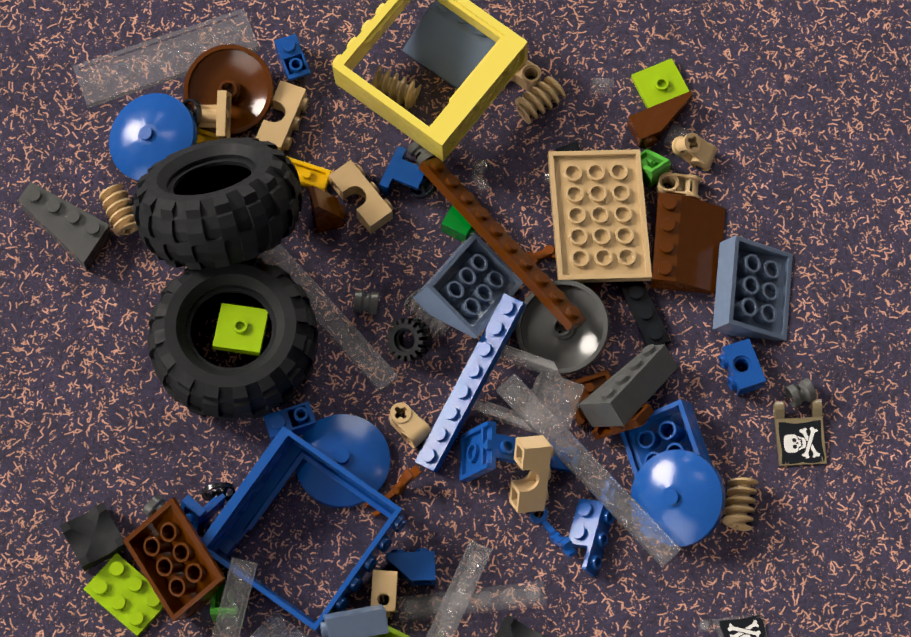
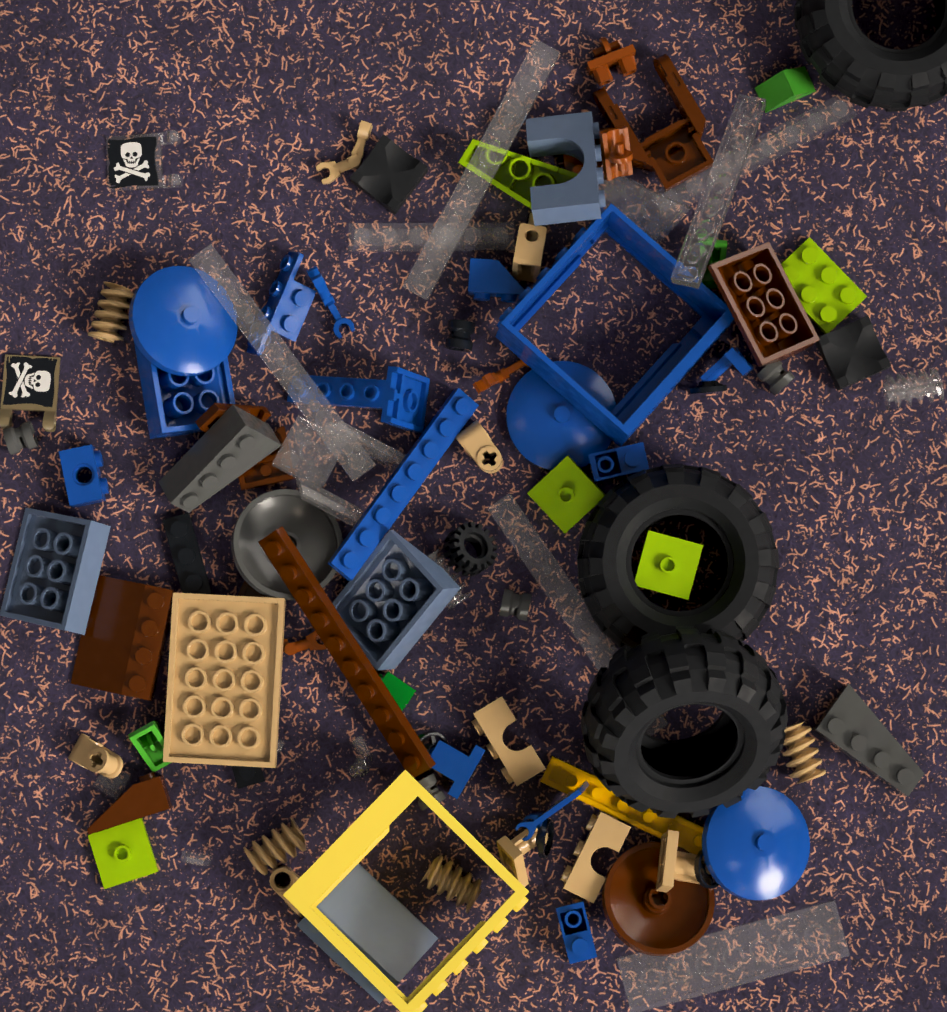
camera: 170 degrees left, 15 degrees up
(40, 512) = (912, 387): none -> clear piece
(319, 143) = (538, 818): none -> blue flag
(326, 210) = (550, 721): reddish brown slope -> none
(327, 125) = (512, 851): none -> tan piece
(332, 394) = (566, 494): none -> lime plate
(437, 515) = (460, 335): none -> black wheel
(531, 492) = (342, 369): tan arch -> none
(681, 184) = (117, 712): tan piece -> none

